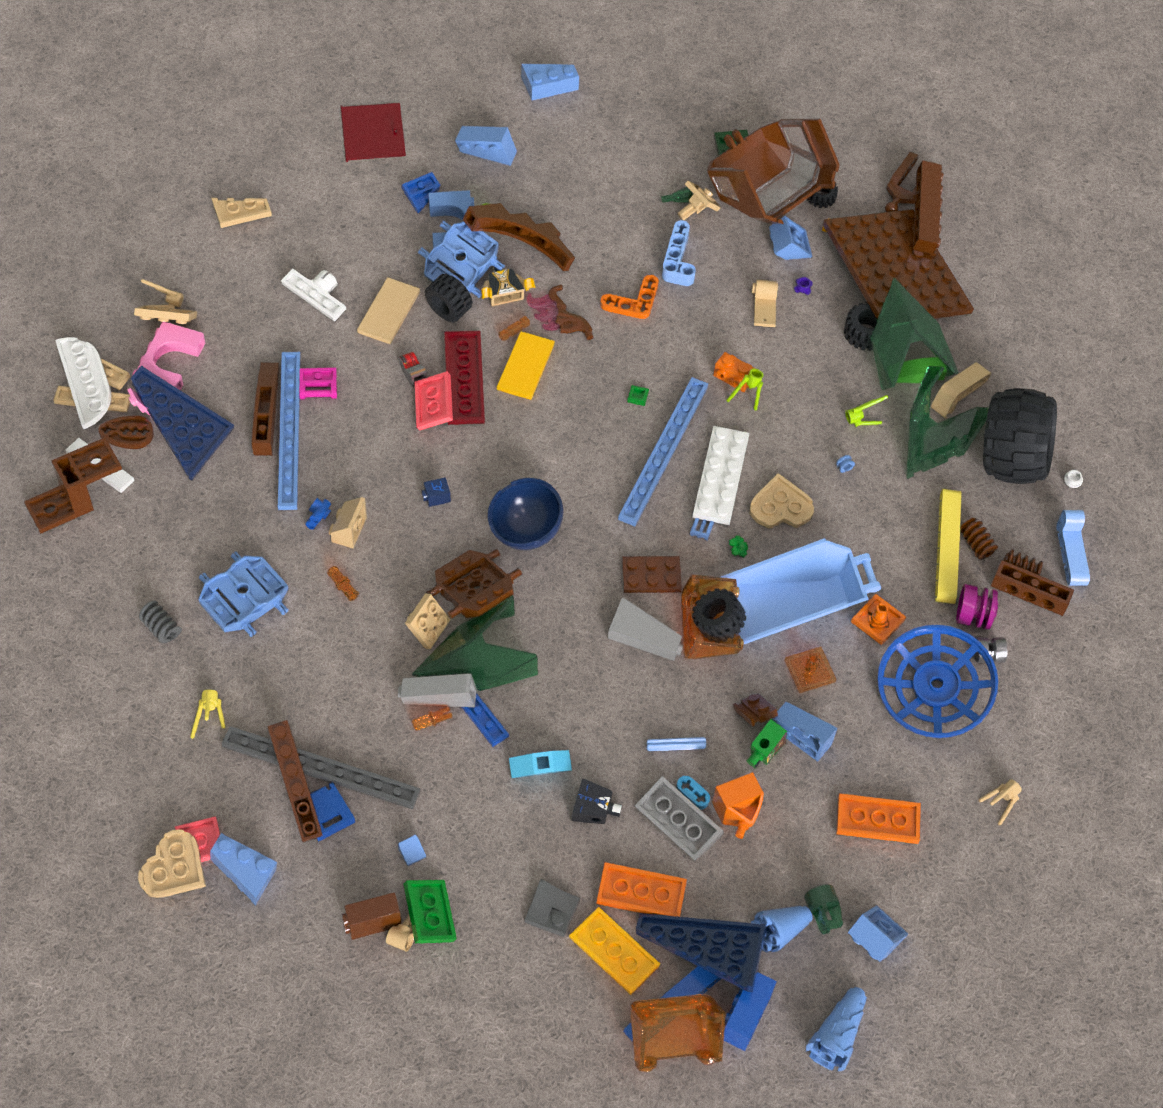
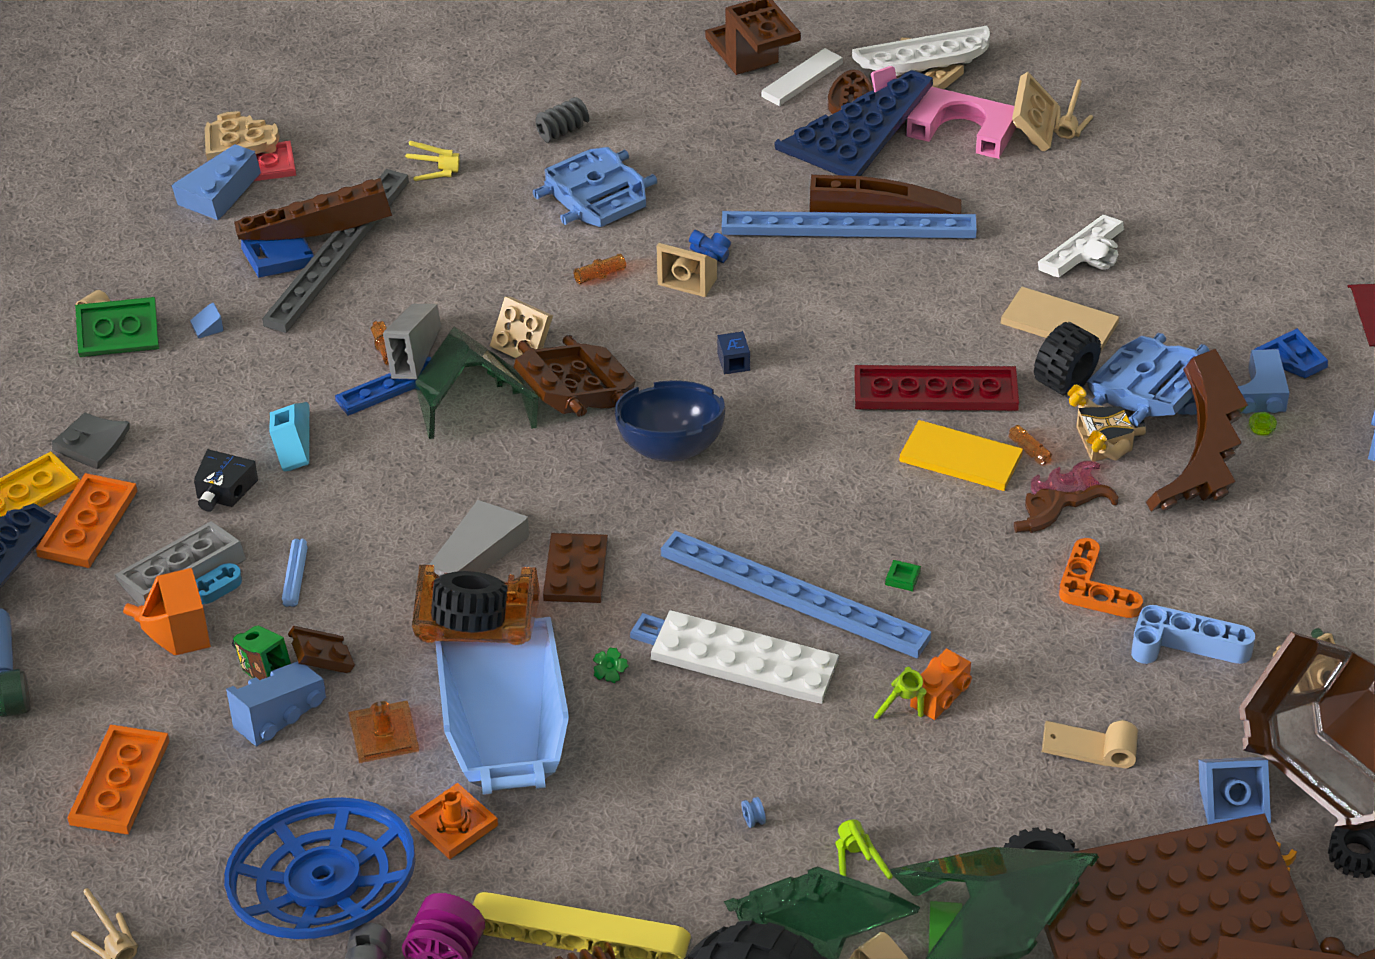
camera: 100 degrees right, 15 degrees down
(235, 212) = (1231, 180): tan wing -> none
(318, 378) = (934, 249): dark pink plate -> none
(371, 916) = (120, 268): reddish brown brick -> none
(412, 367) = (950, 336): leg -> none
(433, 400) = (888, 351): coral plate -> none
(780, 503) = (682, 724): tan plate -> none
(803, 281) = (1139, 794): dark purple plate -> none

